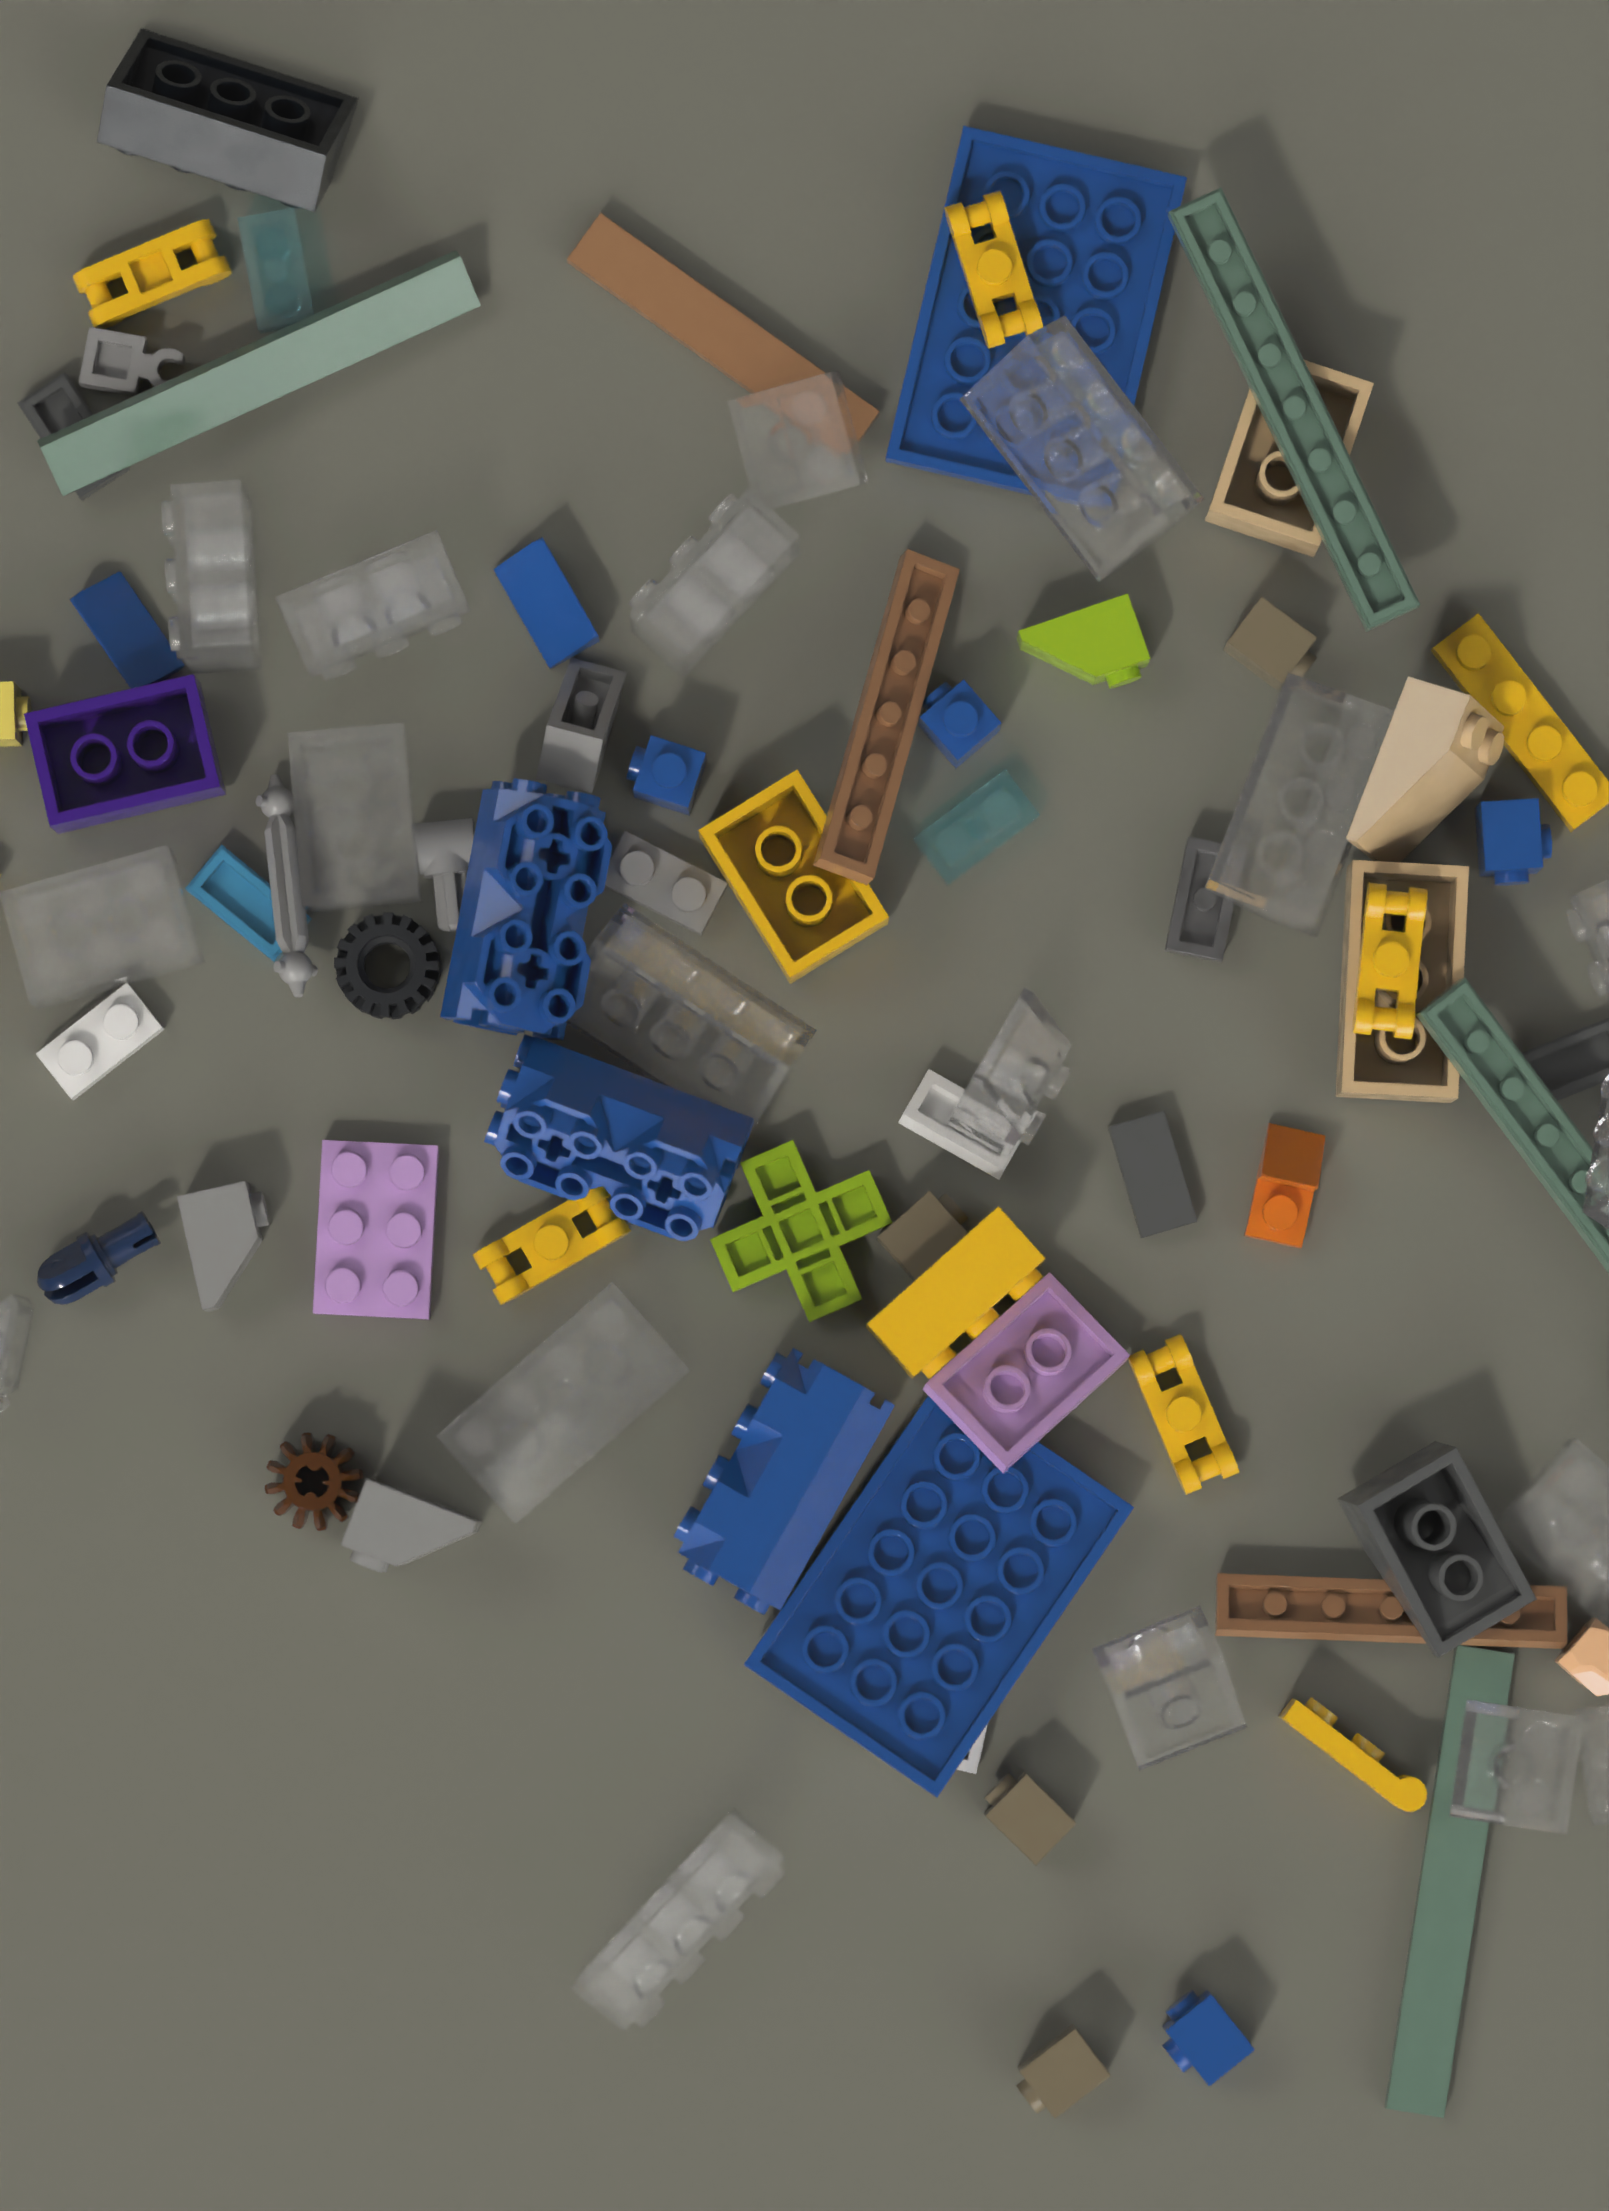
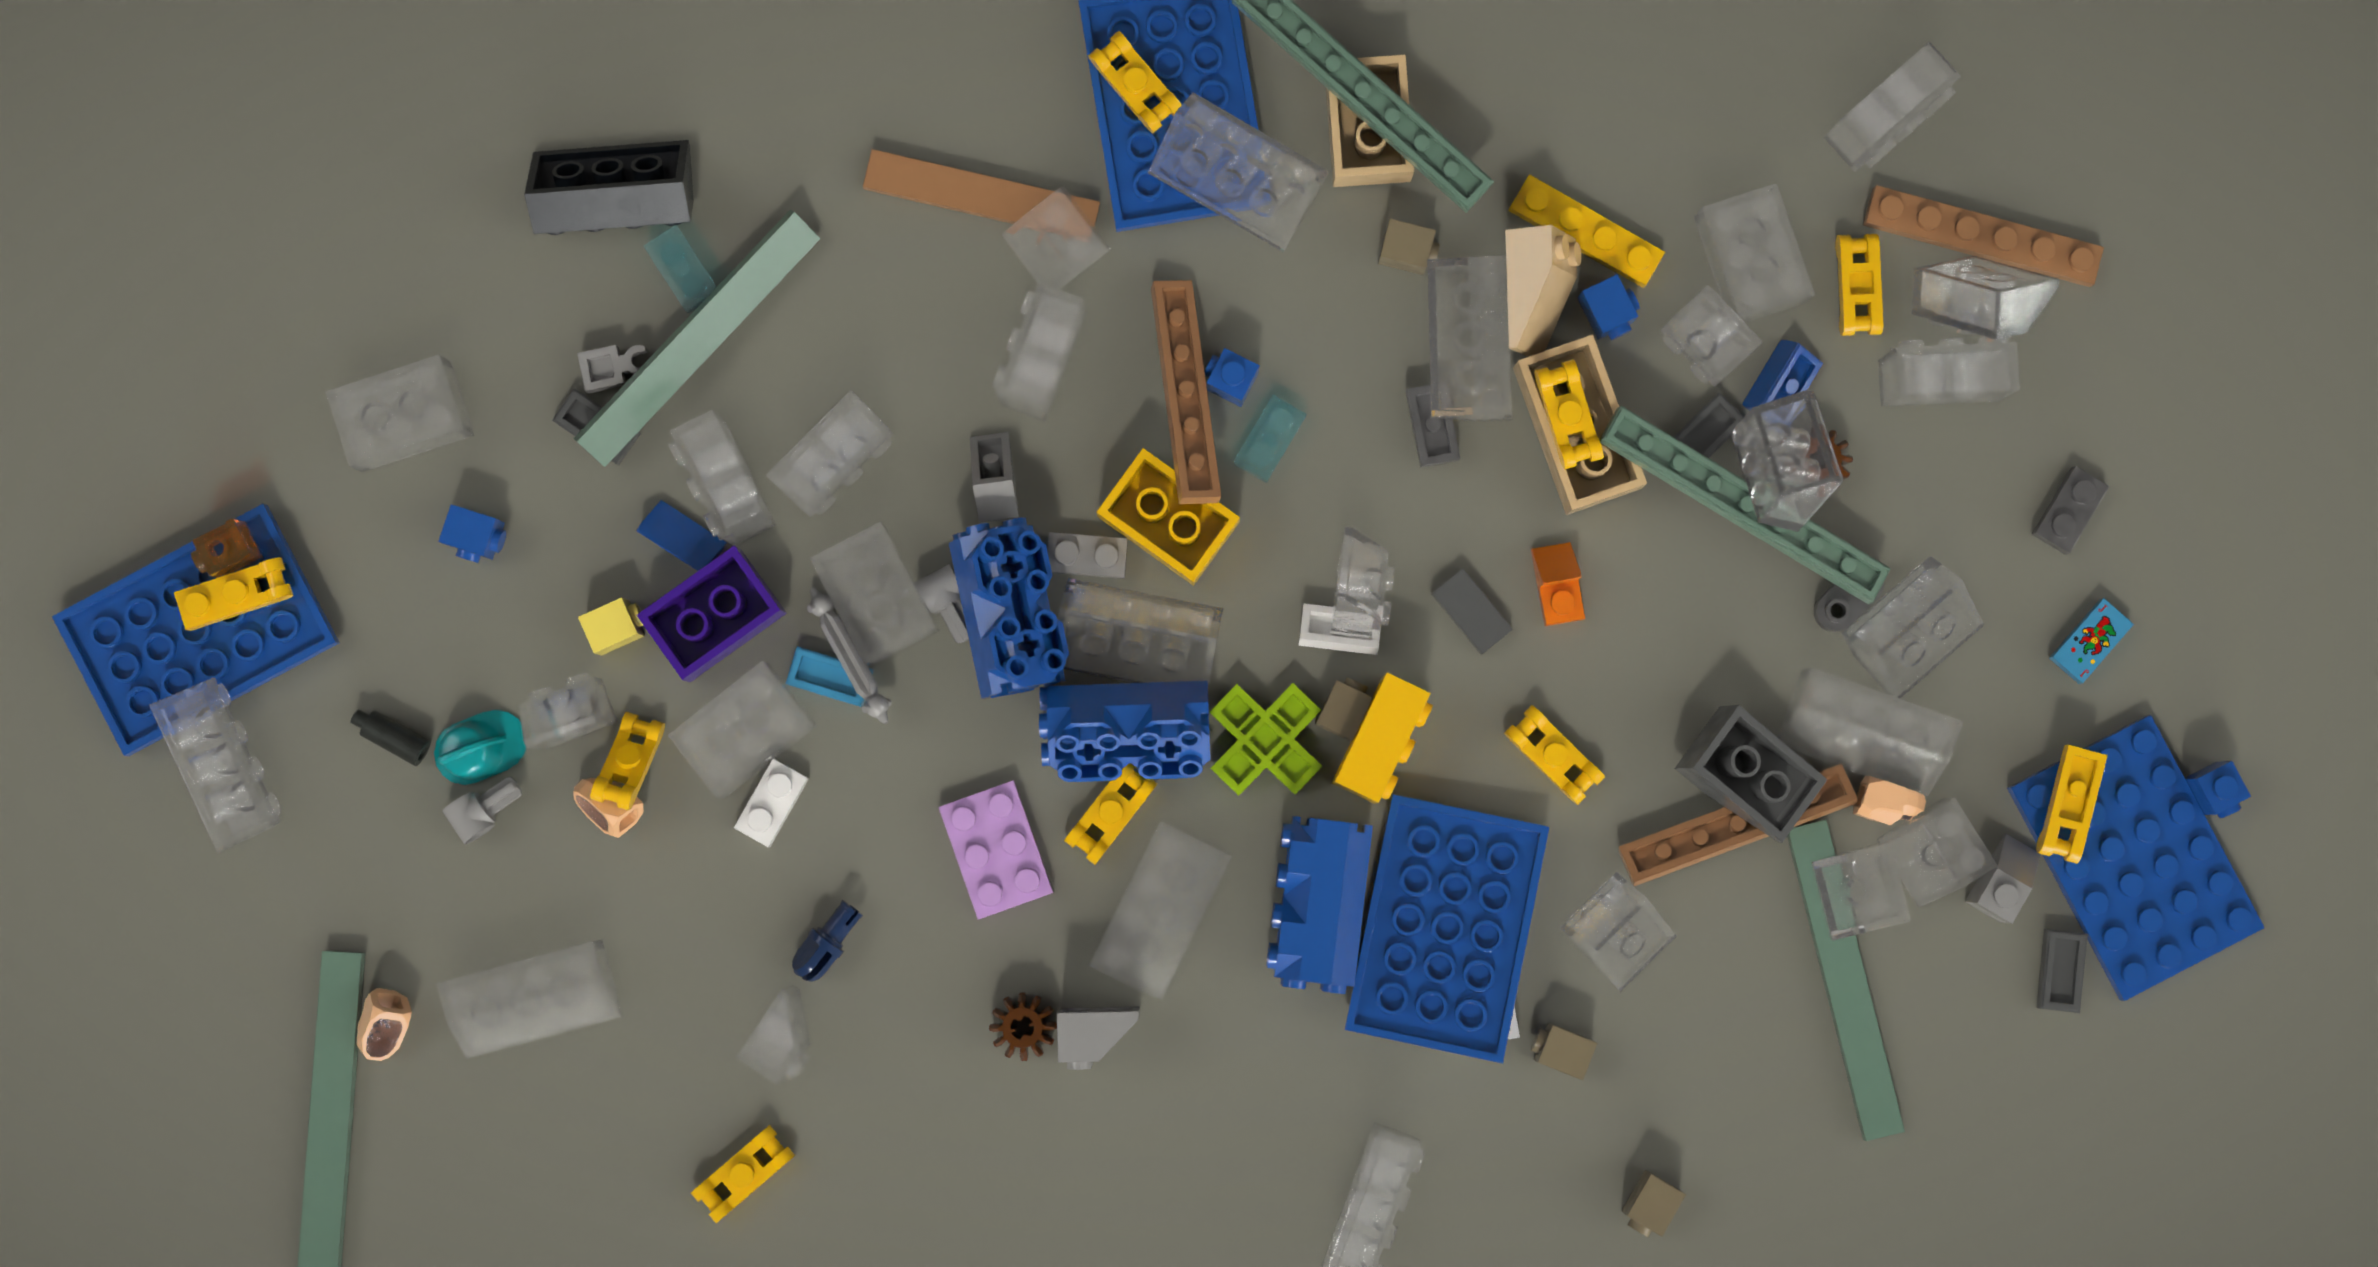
camera: 20 degrees left, 0 degrees up
(152, 273) = (603, 303): yellow plate -> none
(222, 1236) = (900, 895): light grey slope -> none
(387, 930) = (912, 668): black tyre -> none
(546, 603) = (940, 409): blue slope -> none
(667, 774) = (1061, 485): blue brick -> none
(1026, 1372) = (1446, 770): lavender plate -> none
(1092, 643) = (1294, 292): lime slope -> none
(1204, 2037) = (1733, 1144): blue brick -> none
(1357, 1755) = (1755, 925): yellow plate -> none

